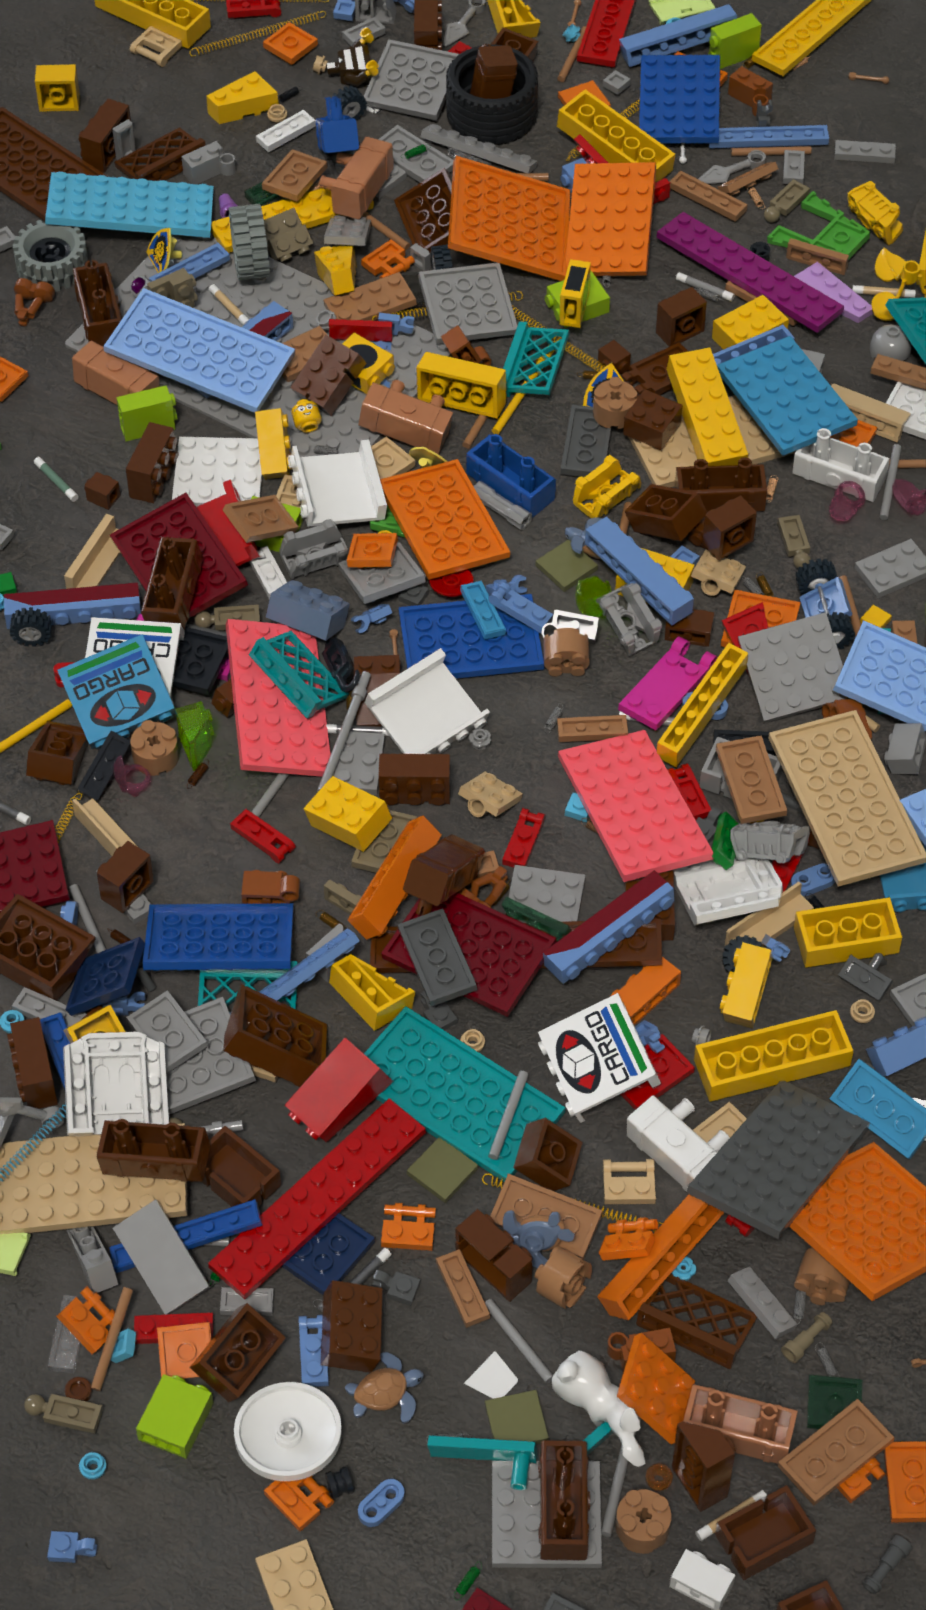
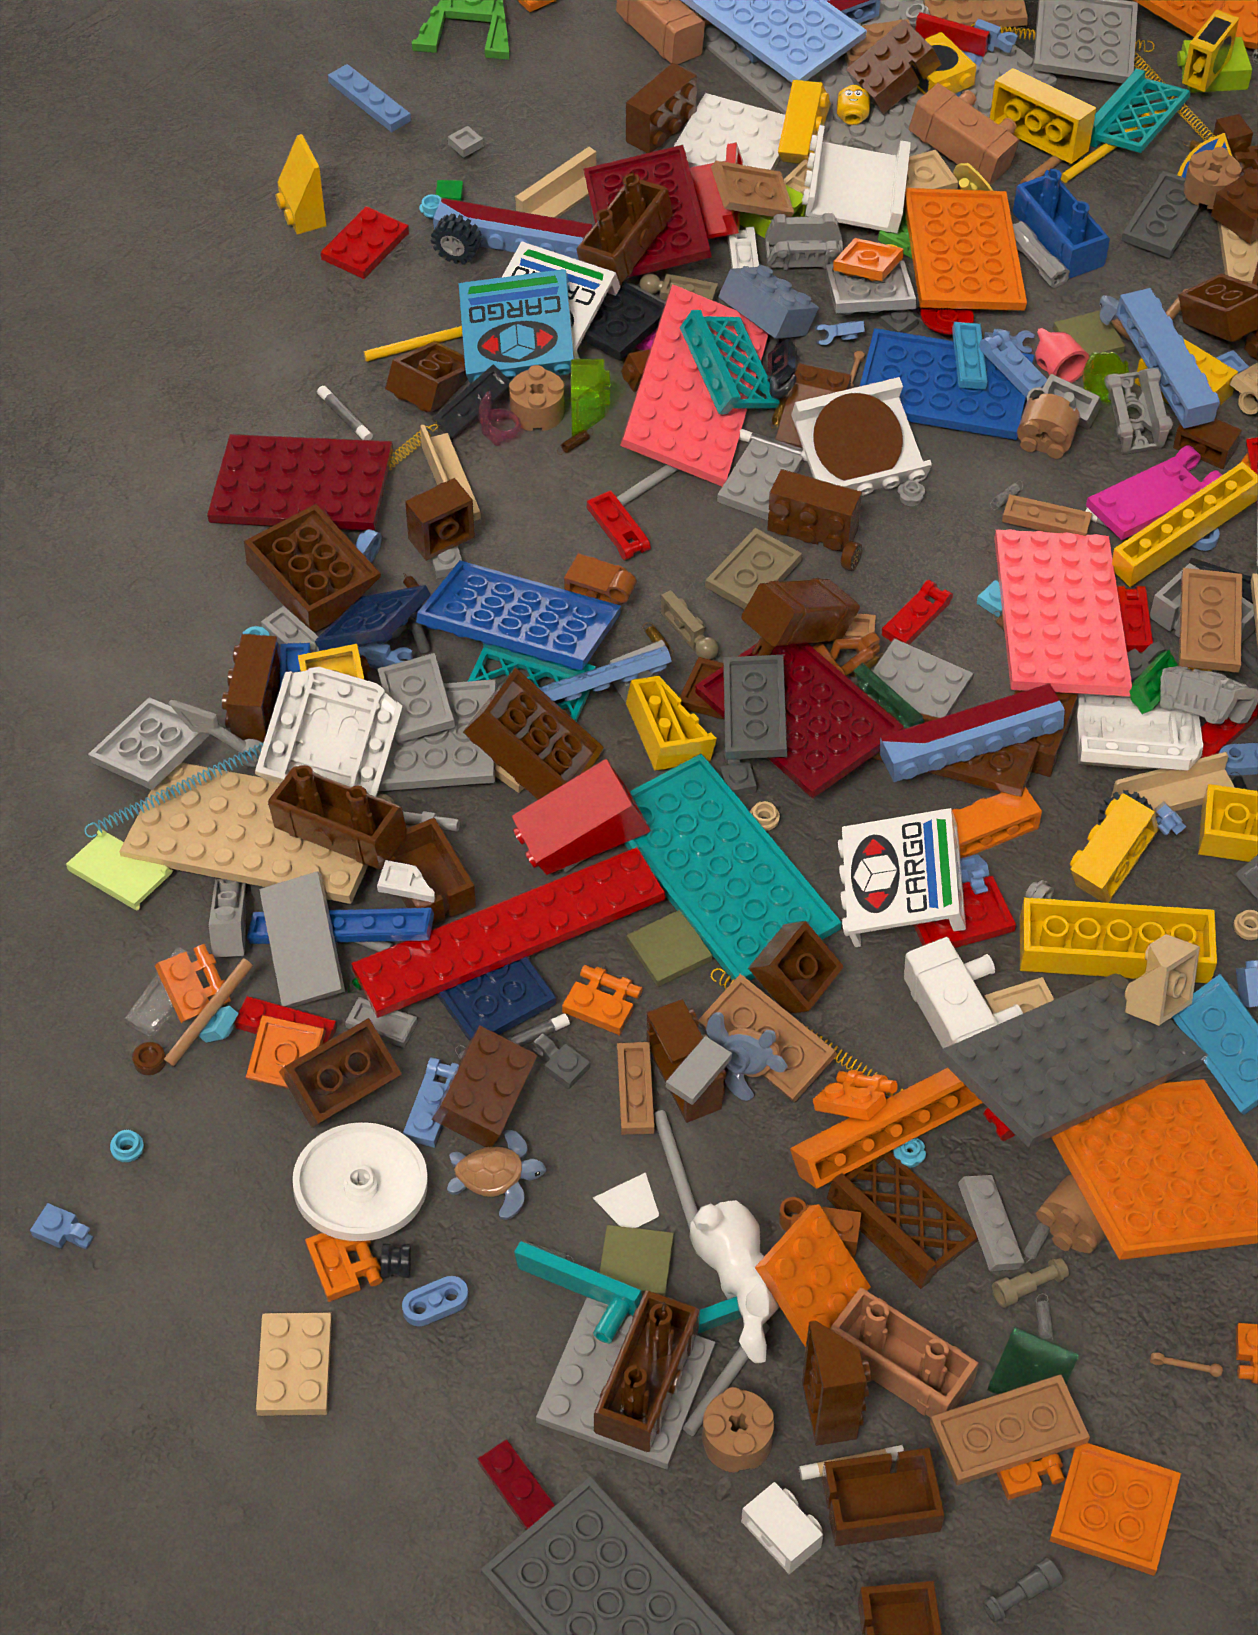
camera: 20 degrees right, 0 degrees up
(56, 479) = (553, 102): sand green bar -> none
(65, 1412) = (123, 1076): dark tan plate -> none
(86, 917) = (386, 554): light grey bar -> none
(102, 490) = (597, 125): reddish brown brick -> none
(144, 407) = (681, 47): lime brick -> none
(175, 1415) = (242, 1121): lime brick -> none
(225, 1184) = (404, 881): none -> white tile
(348, 813) = (722, 526): yellow brick -> none
(358, 695) = (786, 405): light grey bar -> none
(386, 889) = (723, 625): orange brick -> none
(424, 706) = (857, 436): none -> reddish brown sticker
(455, 806) = (851, 555): none -> reddish brown tile
(462, 349) = (1057, 74): dark orange hinge -> none
(468, 1580) = (500, 1428): green piece -> none
(489, 795) = (895, 554): tan plate -> none
(508, 1115) = (769, 909): light grey bar -> none
(513, 1260) = (698, 1070): none -> light grey tile
(553, 589) = (1060, 355): none -> coral piece
(562, 1277) = (756, 1113): medium nougat brick -> none
(598, 482) = (1160, 265): yellow piece -> none
(629, 1189) = (883, 1040): tan plate -> none
(662, 1470) = (780, 1376): clear orange plate -> none
(823, 1077) = (1167, 982): none -> tan slope

